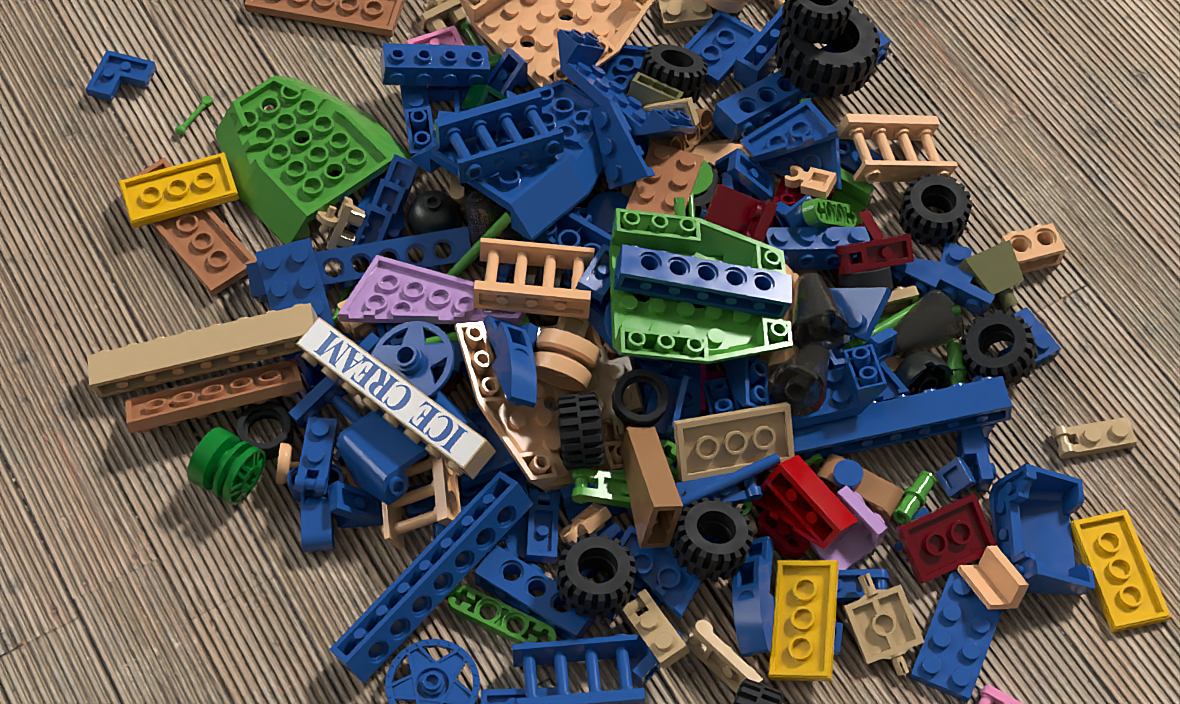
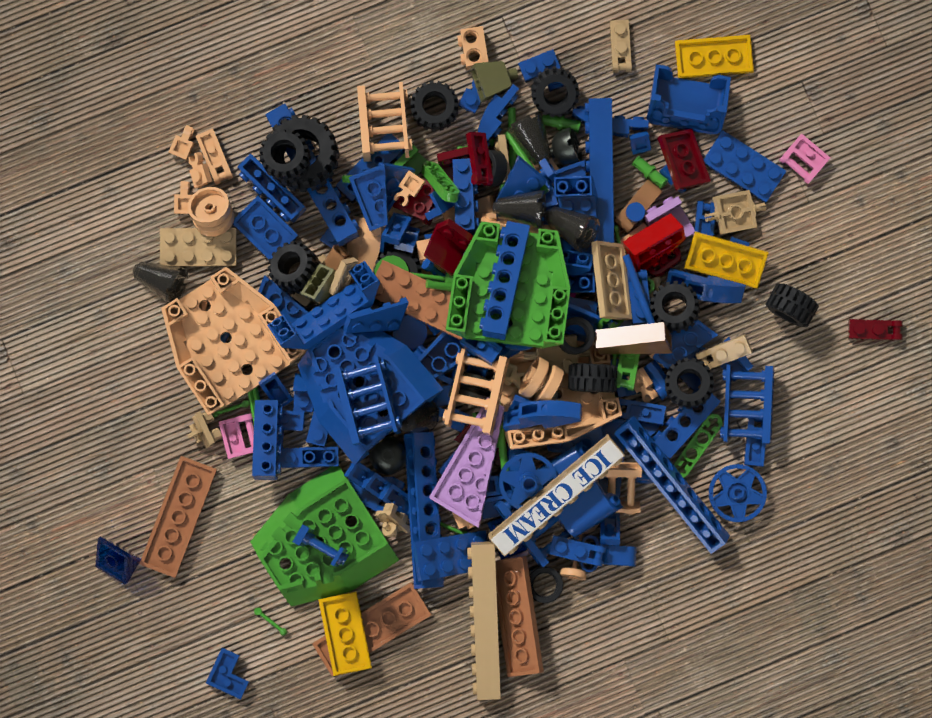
camera: 80 degrees left, 25 degrees up
(226, 465) = (574, 610): green wheel -> none
(304, 105) = (306, 537): none -> blue fence
(474, 251) = (435, 431): bright green bar -> none
(480, 95) = (299, 408): dark green panel -> none
(719, 656) = (744, 314): tan plate -> none
(995, 580) = (717, 138): light nougat panel -> none

